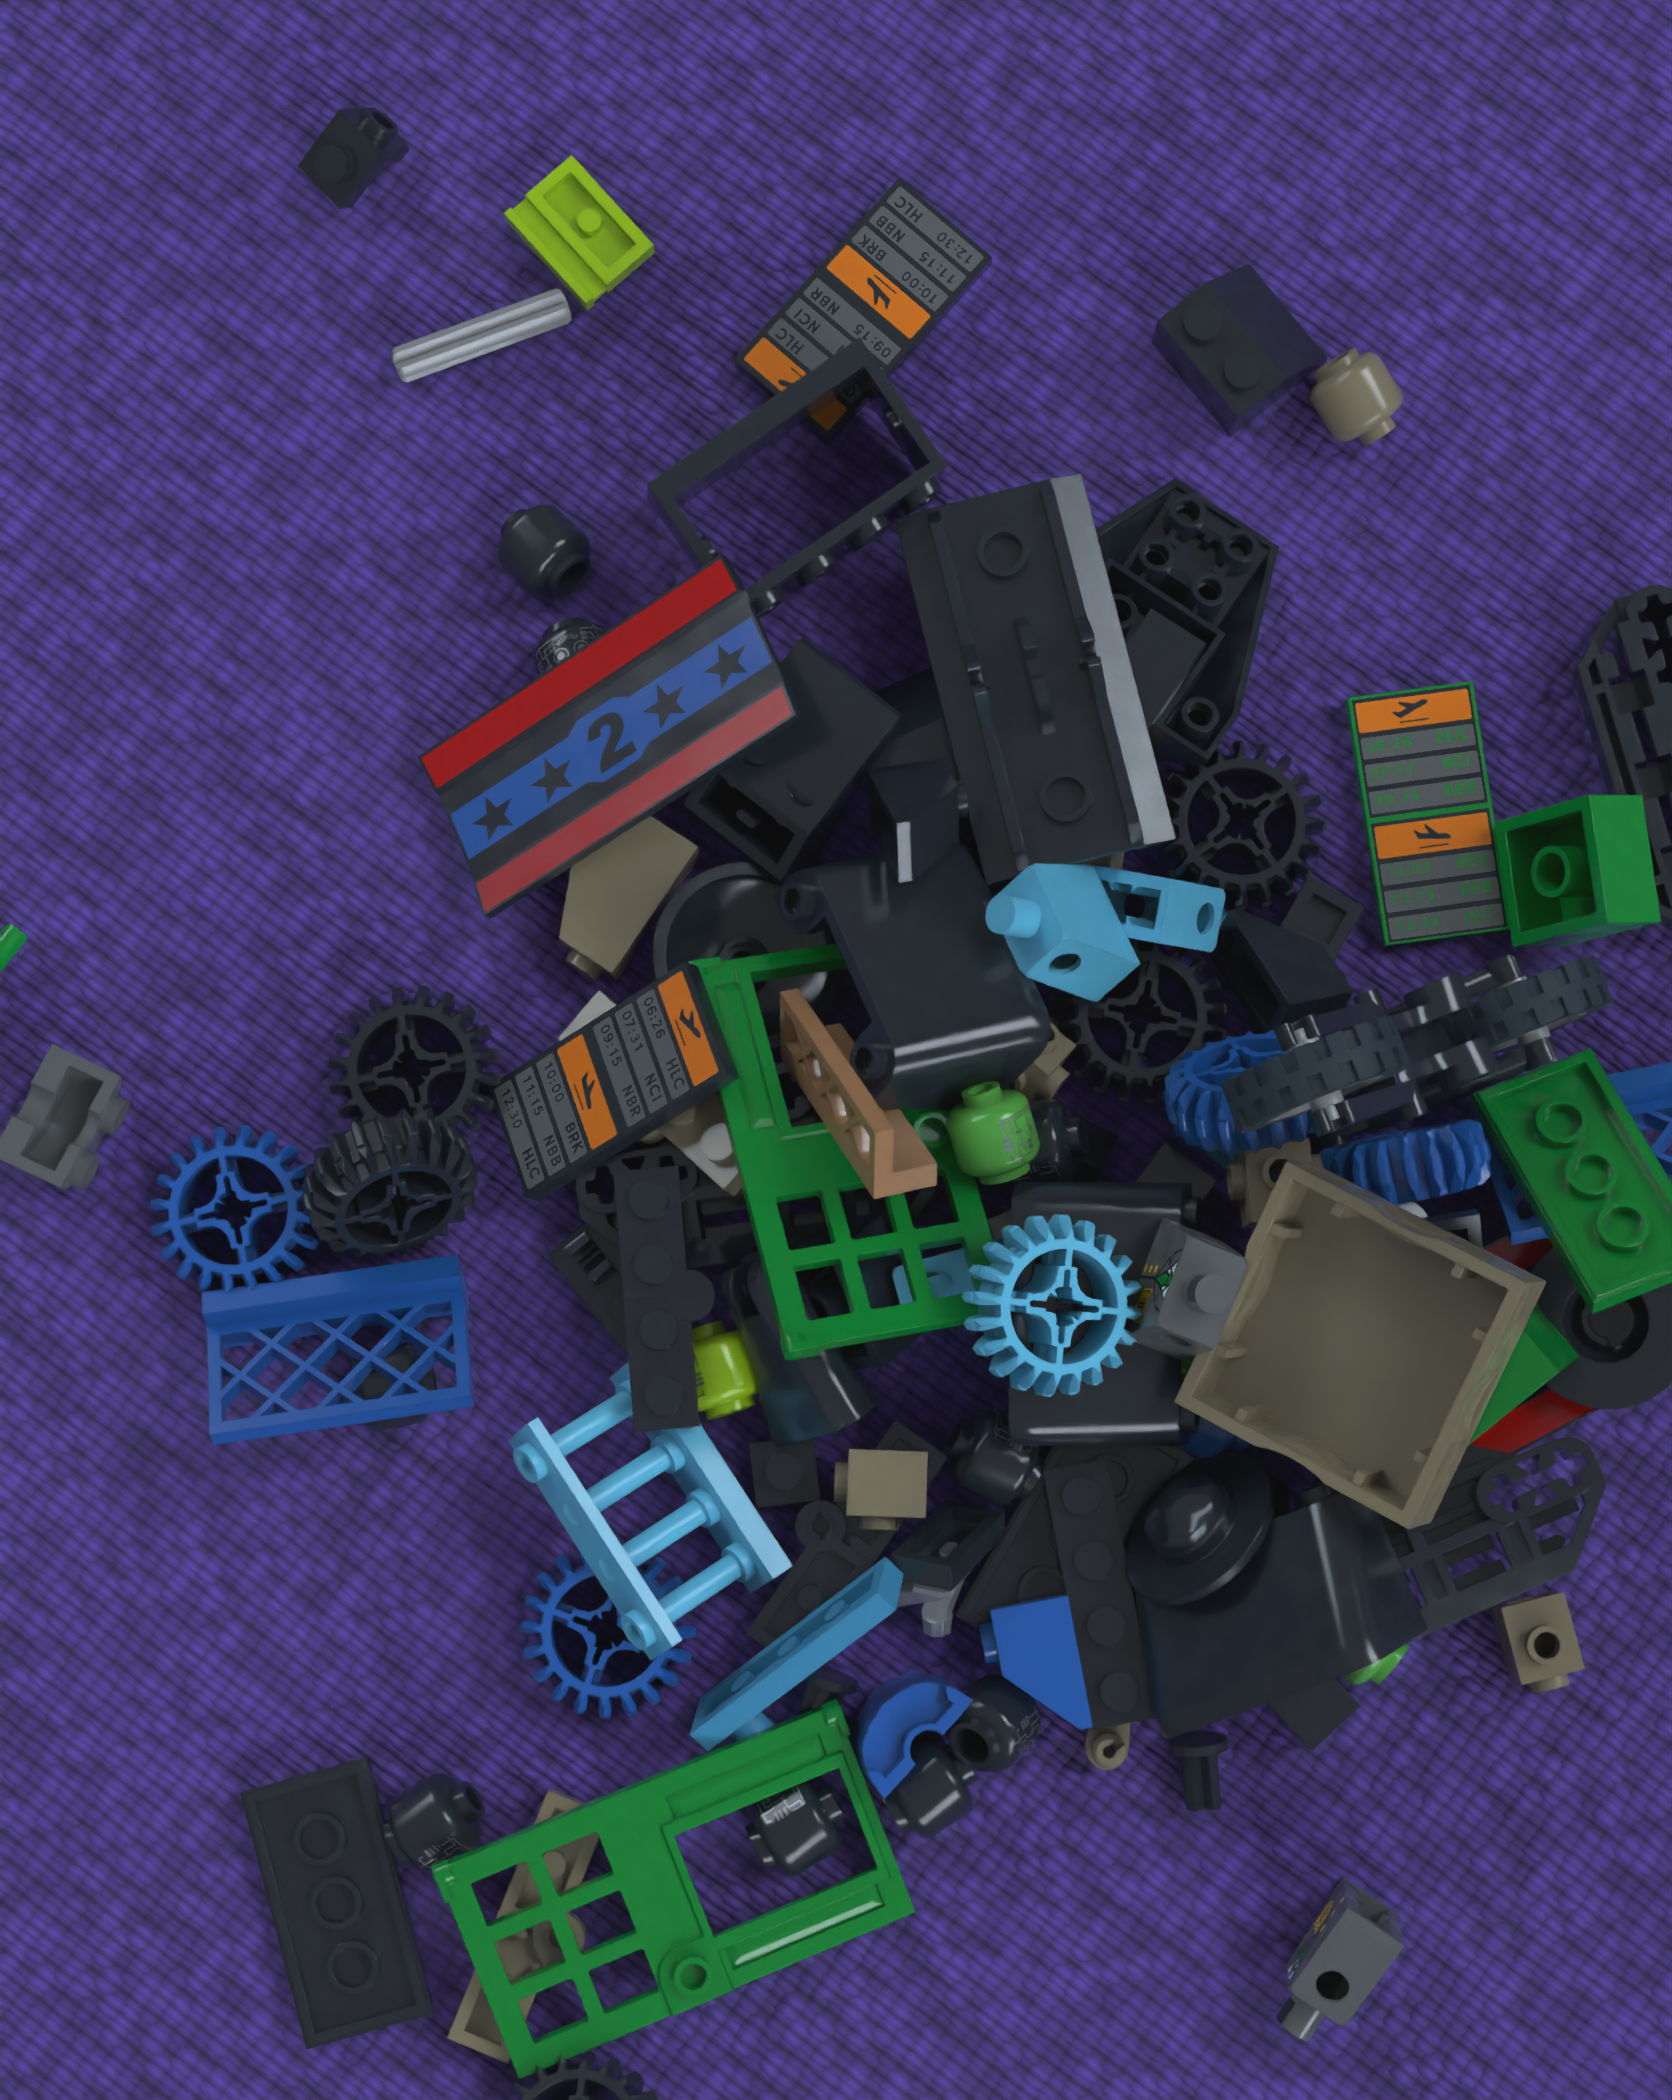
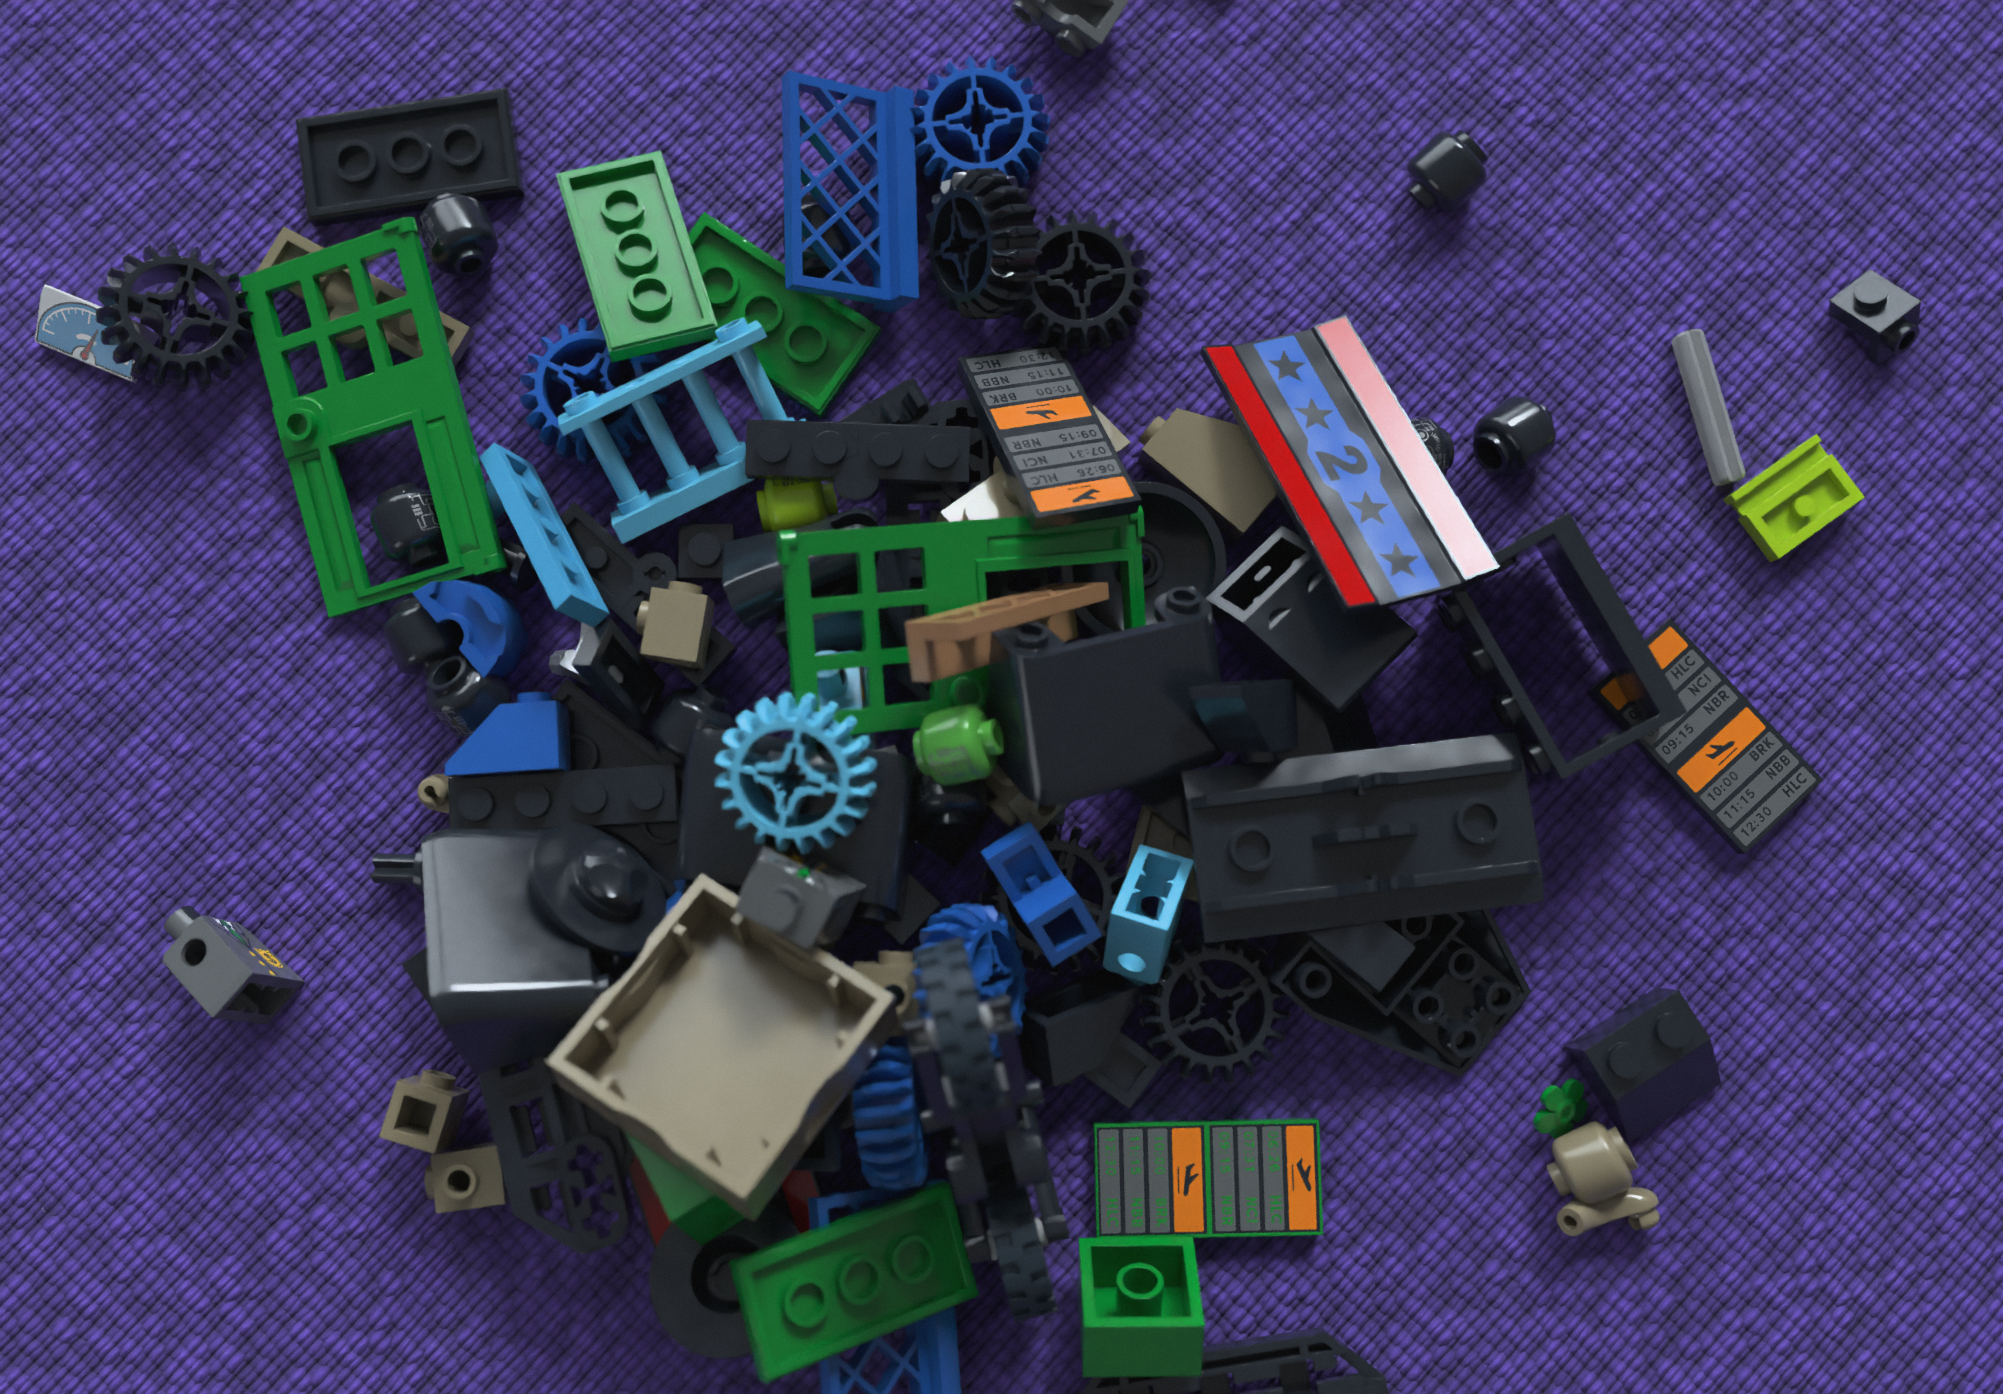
camera: 90 degrees right, 0 degrees up
(234, 656) = (1446, 171): none -> black head
(439, 1598) = (637, 256): none -> tile
(461, 1485) = (810, 337): none -> green tile
(1063, 929) = (1134, 830): medium azure torso -> none
(1145, 1025) = (1041, 893): none -> blue brick
(1300, 435) = (1561, 1108): none -> green plant
(1392, 345) = (1635, 1203): none -> dark tan arm
(1473, 1700) = (425, 1111): none -> dark tan brick

